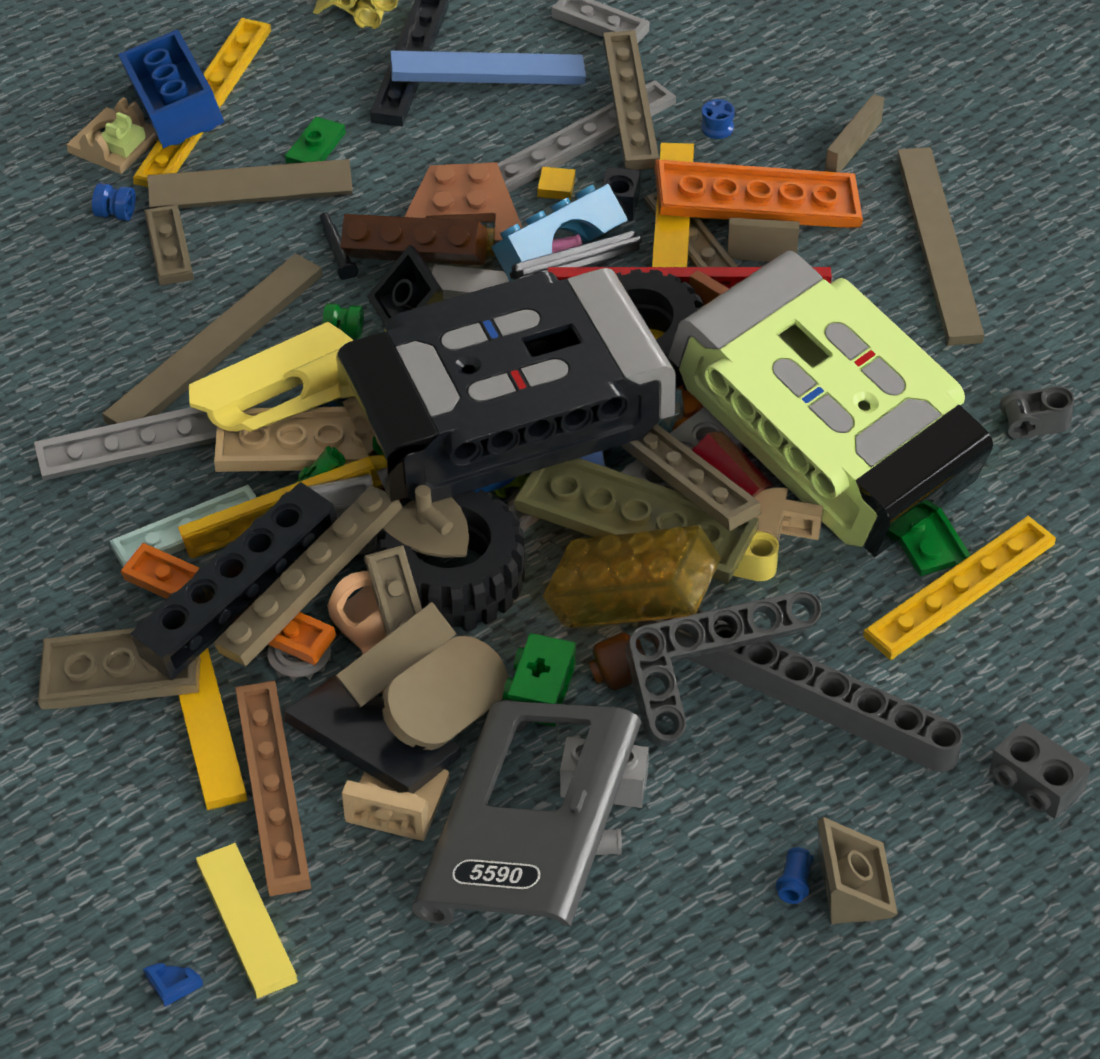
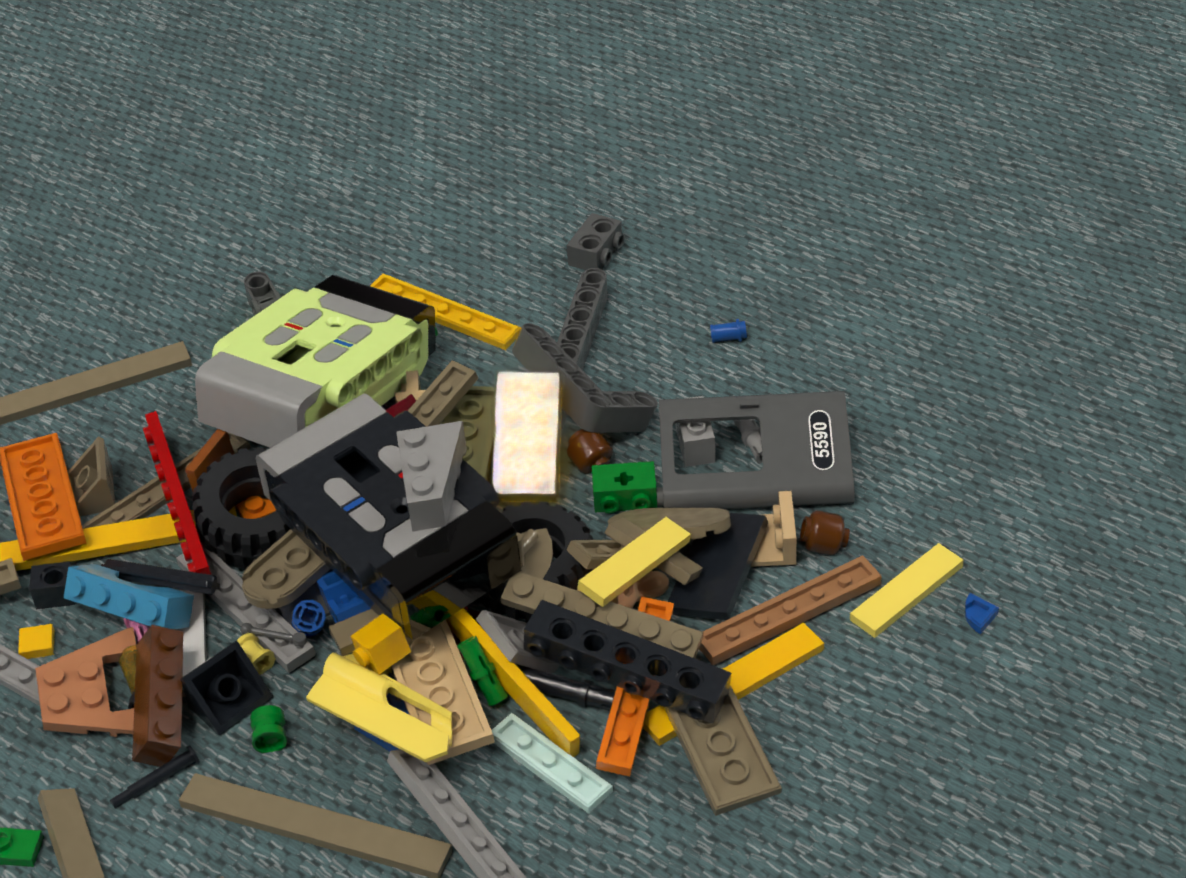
camera: 105 degrees left, 5 degrees down
(360, 609) = (633, 561): none -> light yellow tile
(368, 854) = (824, 533): none -> reddish brown head
(480, 374) = (430, 471): none -> light grey wedge
(854, 874) = (720, 307): dark tan slope -> none

